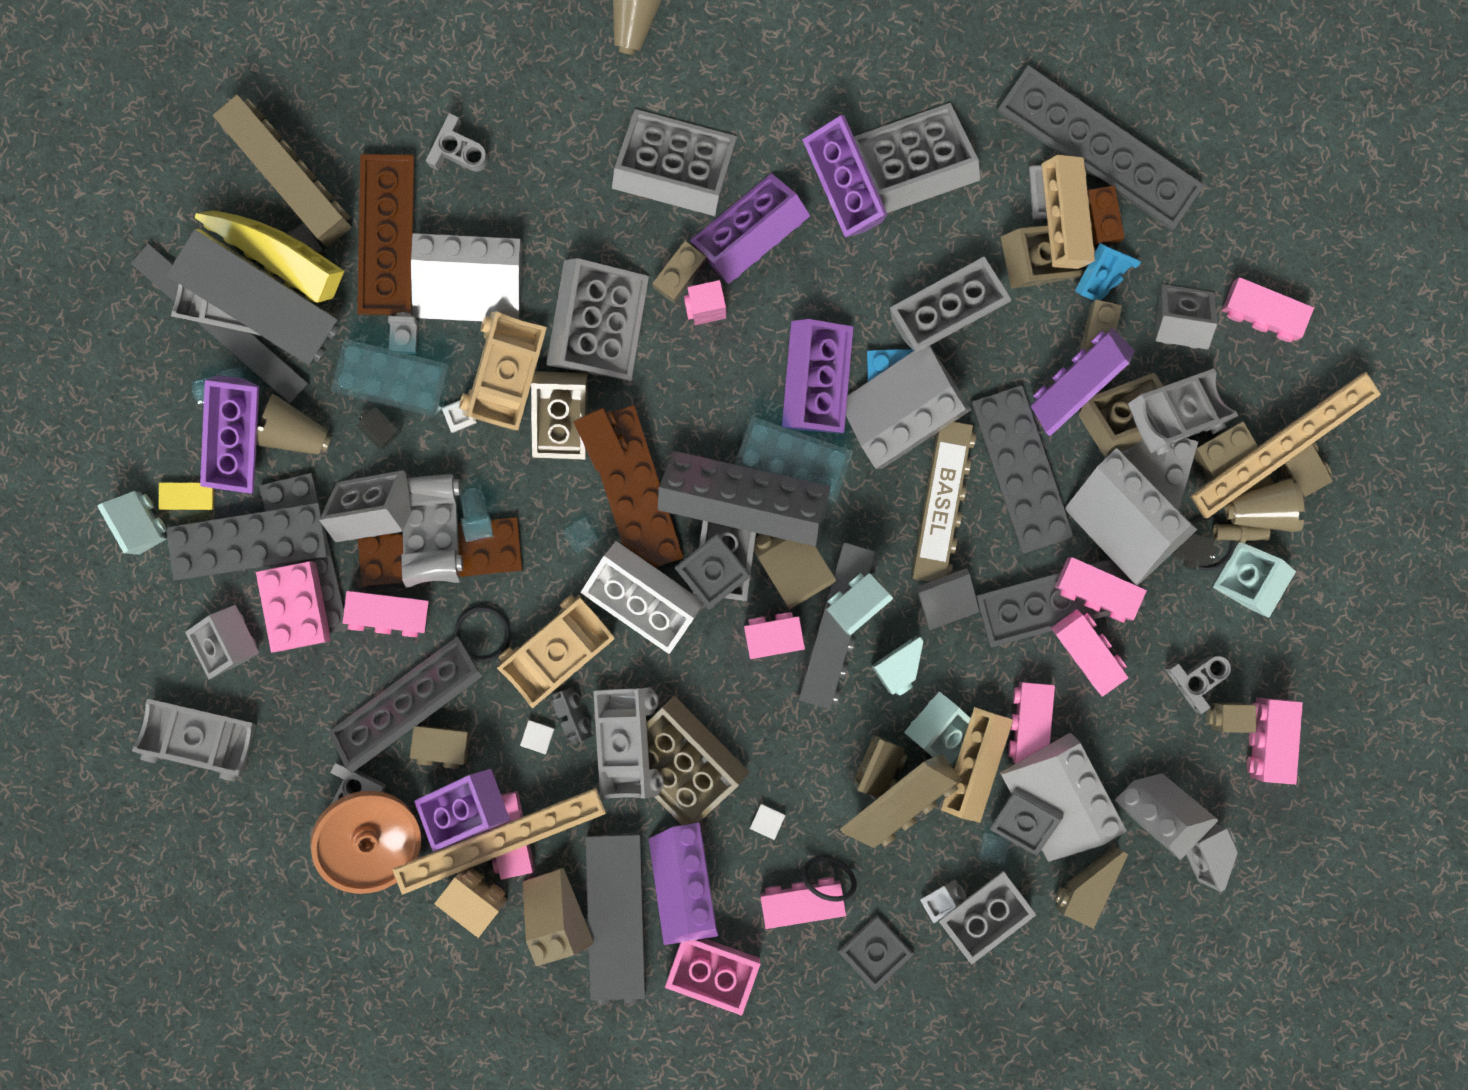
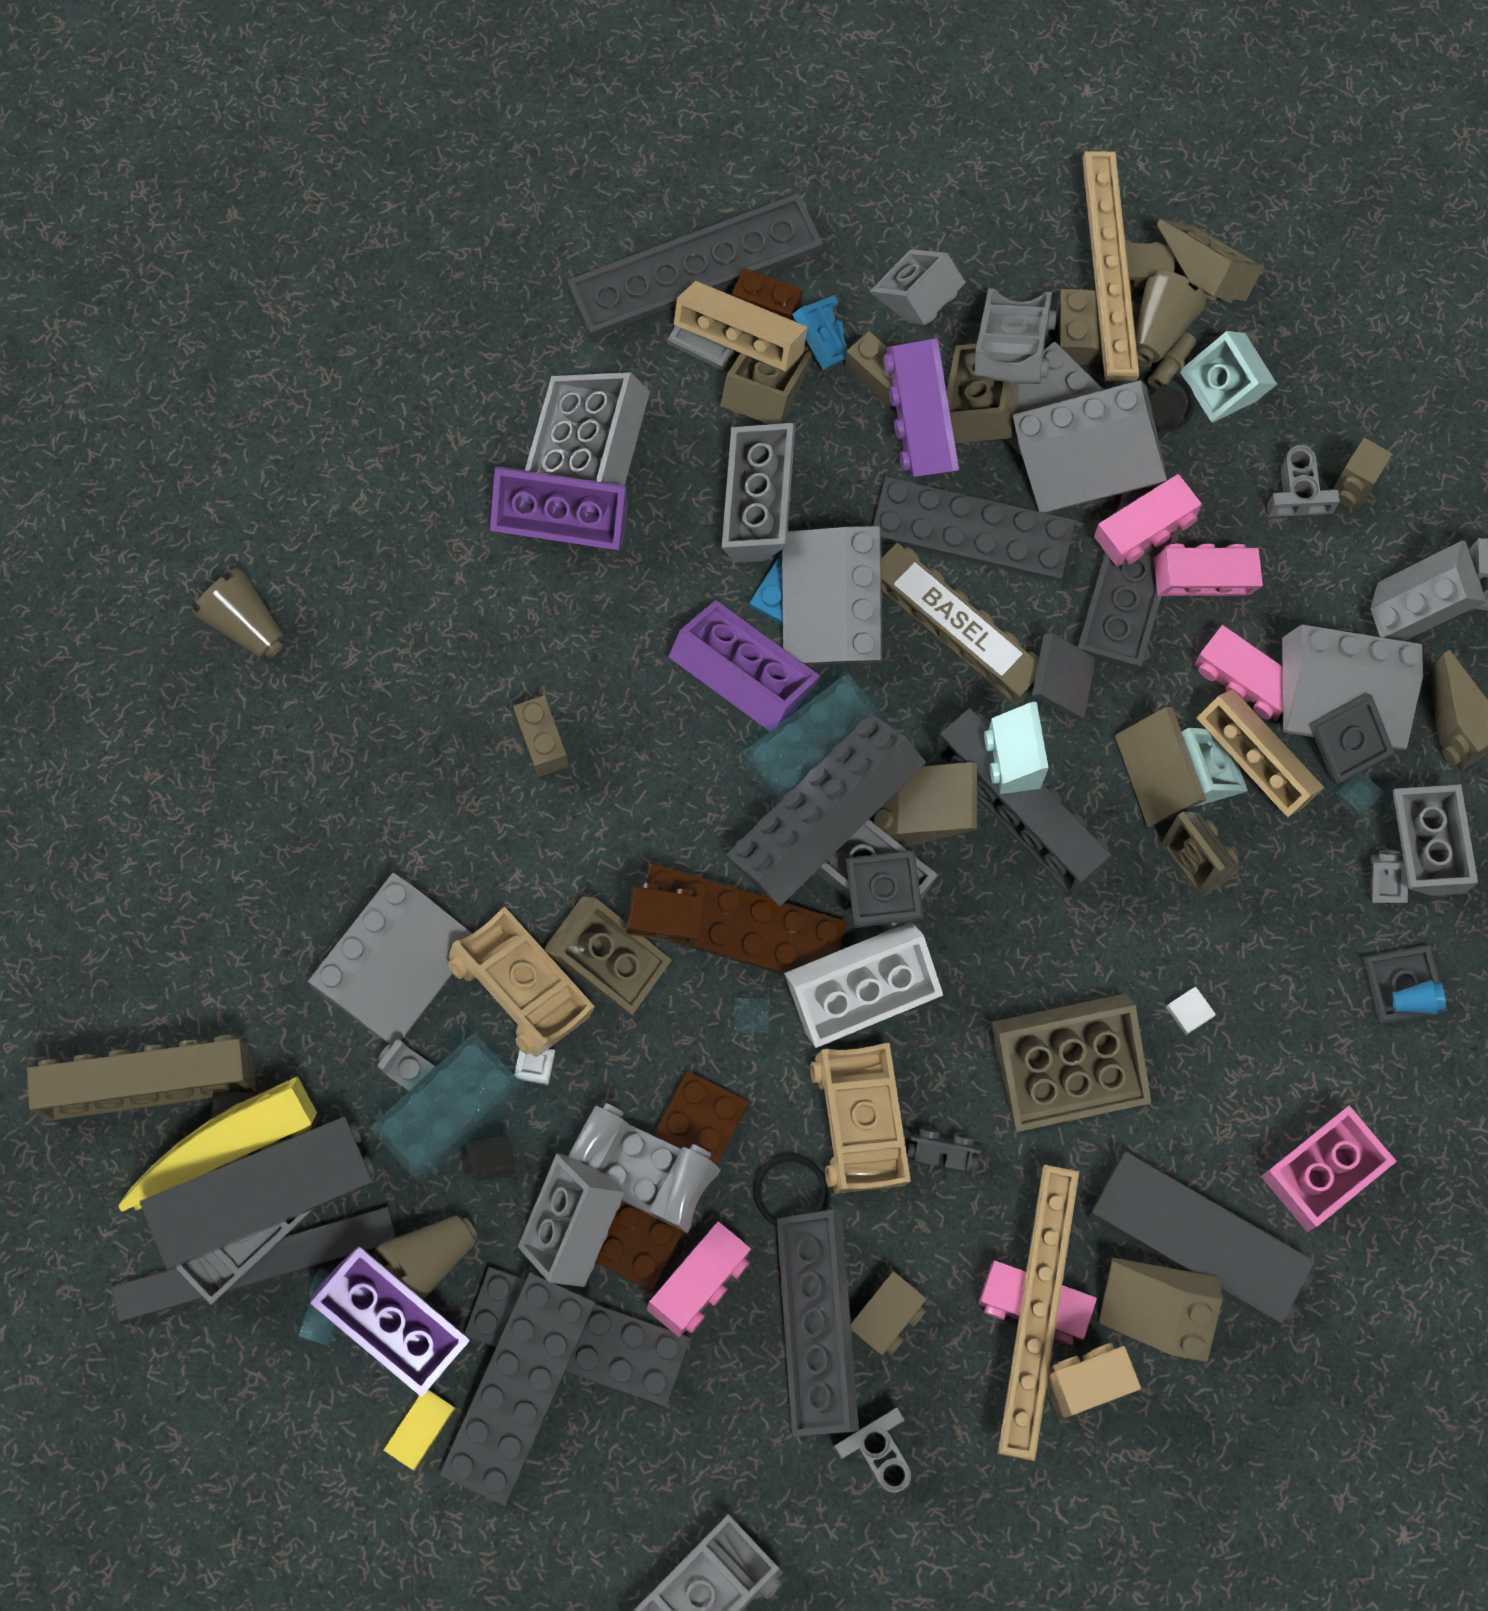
camera: 55 degrees left, 15 degrees down
(133, 522) = (409, 1504): light aqua slope -> none
(222, 641) = (611, 1494): light grey slope -> none
(293, 606) = (627, 1376): bright pink brick -> none
(363, 840) = (946, 1469): nougat dish -> none
(385, 234) = (287, 1017): reddish brown plate -> none
(462, 810) = (978, 1329): medium lavender brick -> none
(463, 150) = (253, 873): light grey tile -> none
(476, 519) = (663, 1112): clear light blue piece -> none
(537, 737) = (944, 1202): white tile -> none
(597, 319) = (531, 852): light grey slope -> none
(624, 744) = (1012, 1104): light grey piece -> none
(673, 162) = (423, 673): light grey slope -> none
(682, 884) = (1210, 1136): medium lavender slope -> none
(705, 303) = (593, 721): bright pink brick -> none
(750, 228) = (543, 637): medium lavender slope -> none
(773, 636) = (992, 868): bright pink brick -> none
(800, 904) = (1304, 1026): bright pink brick -> none
(821, 895) = (1303, 995): black tyre -> none
(869, 970) = (1421, 998): none -> dark azure cone
(900, 666) = (1107, 764): light aqua slope -> none
(903, 803) = (1258, 843): dark tan slope -> none
(923, 705) = (1160, 767): none -> dark tan tile
(1267, 310) = (961, 209): bright pink brick -> none
(1275, 741) = (1421, 450): bright pink brick -> none
(1336, 512) = (1210, 262): none -> dark tan slope

